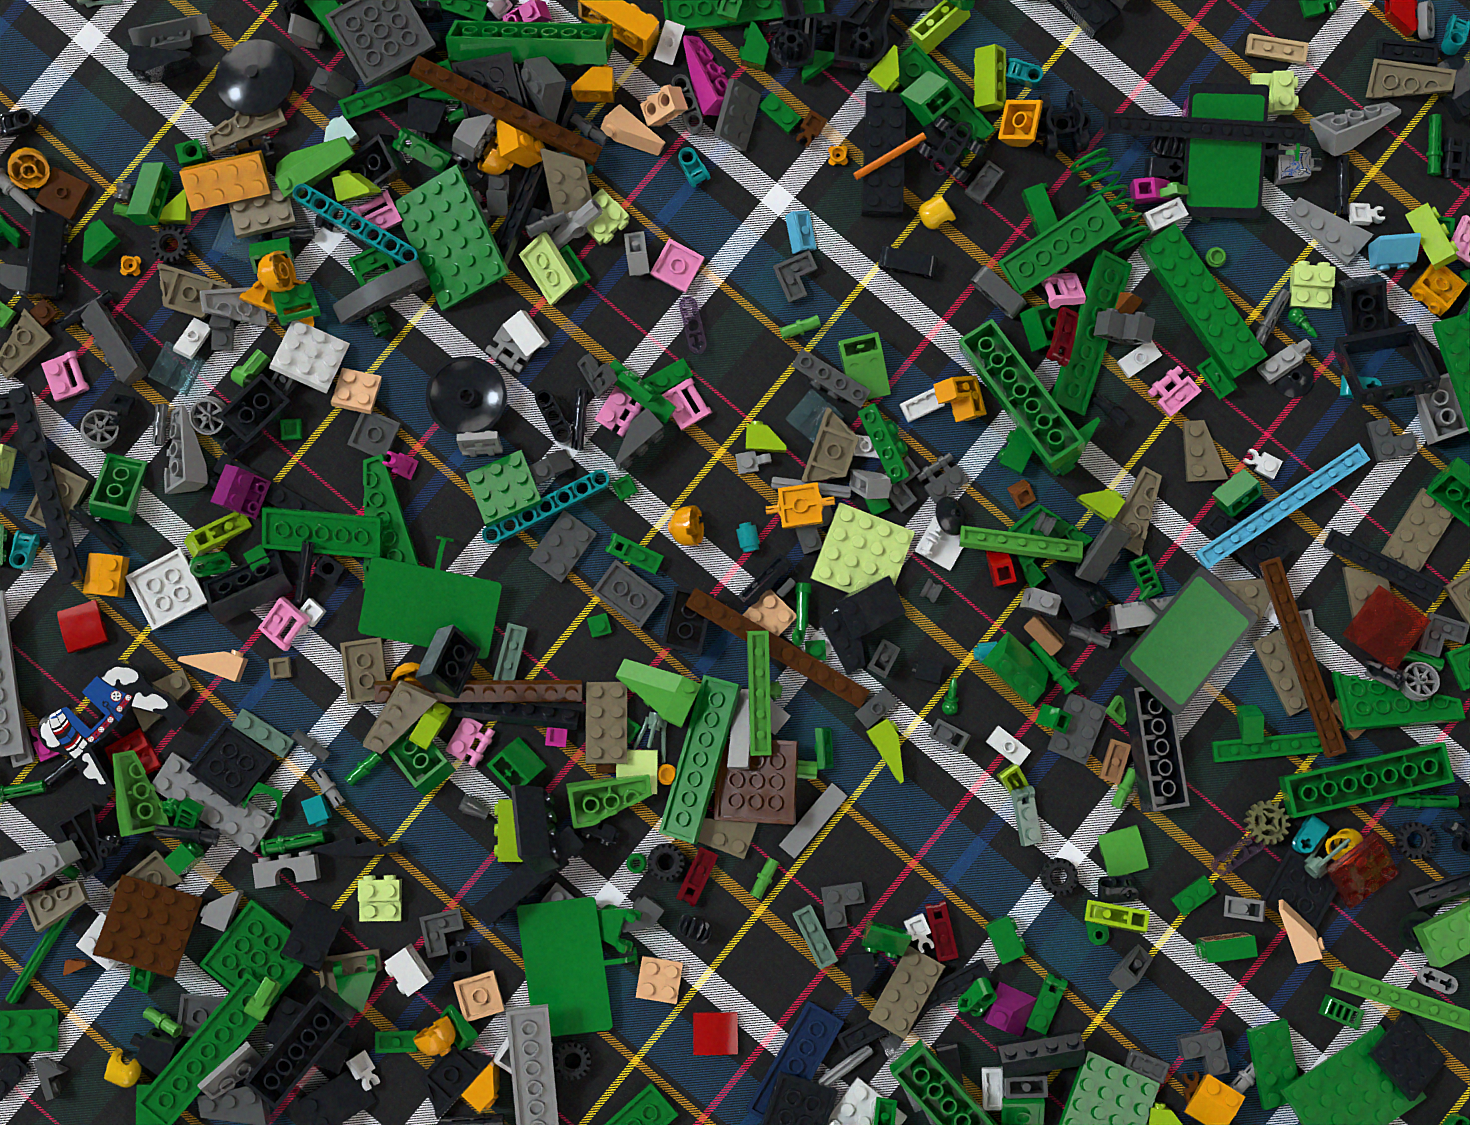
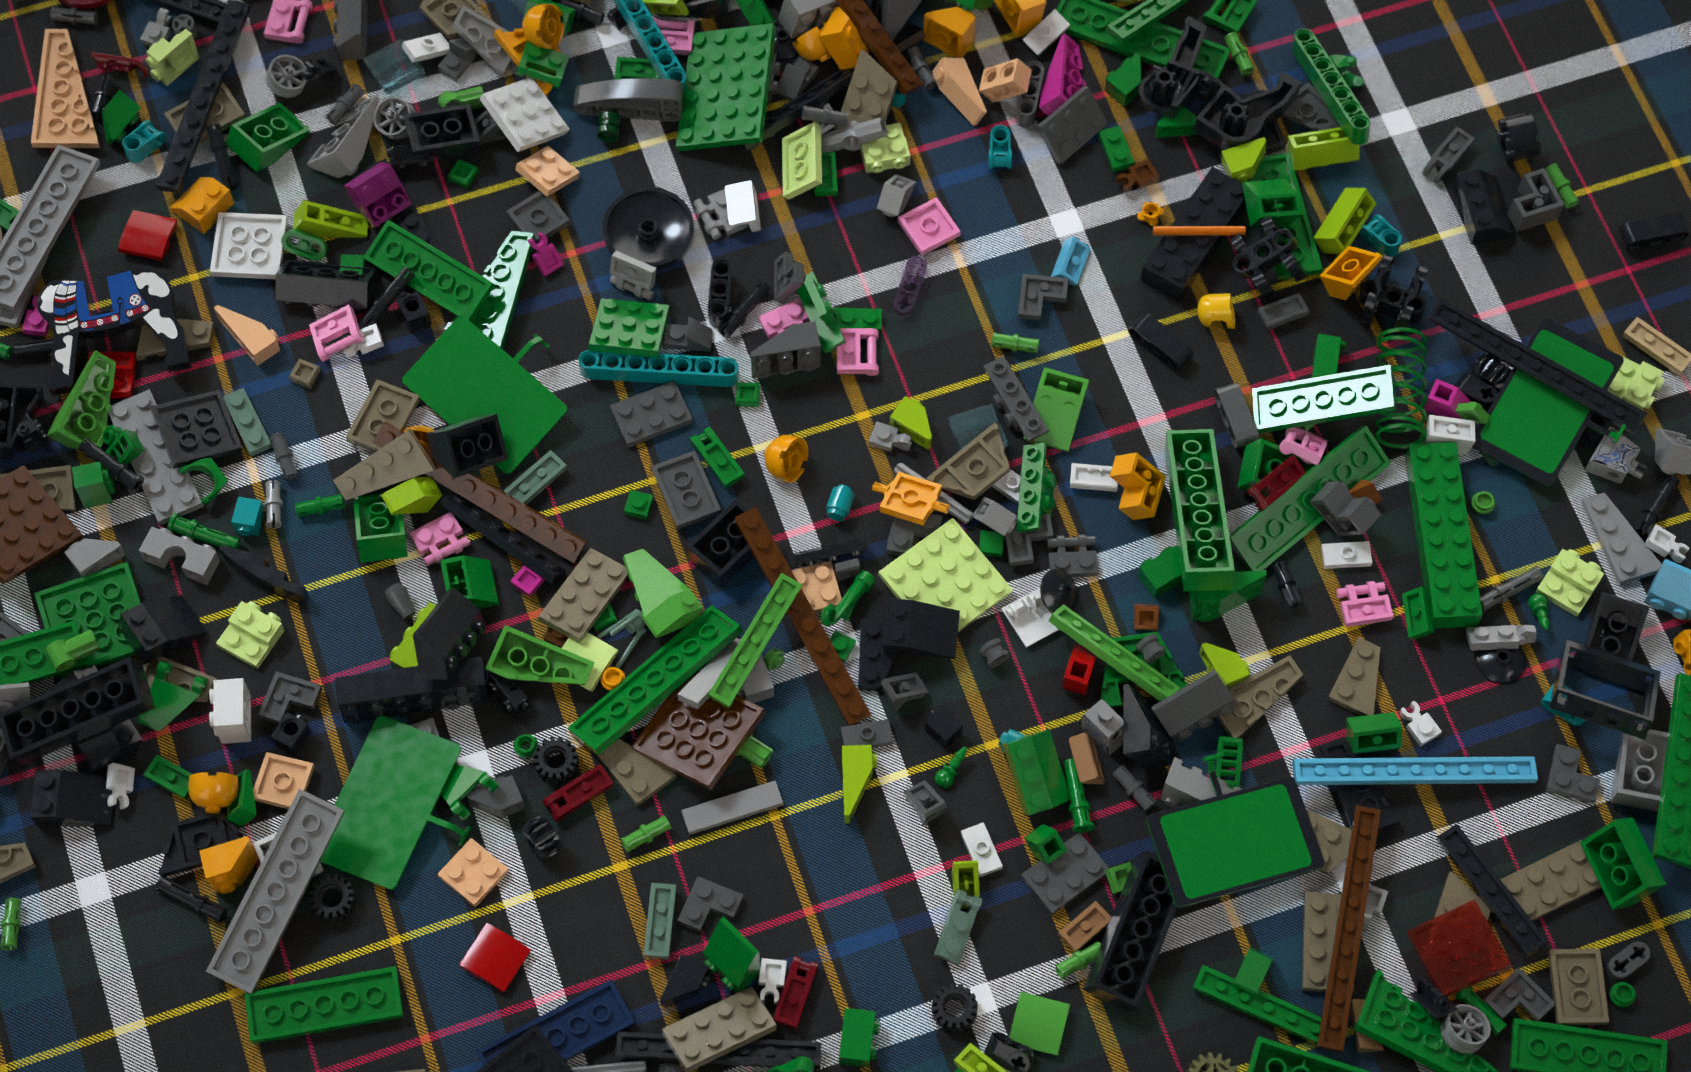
camera: 30 degrees right, 20 degrees down
(824, 748) = (788, 741): green plate -> none

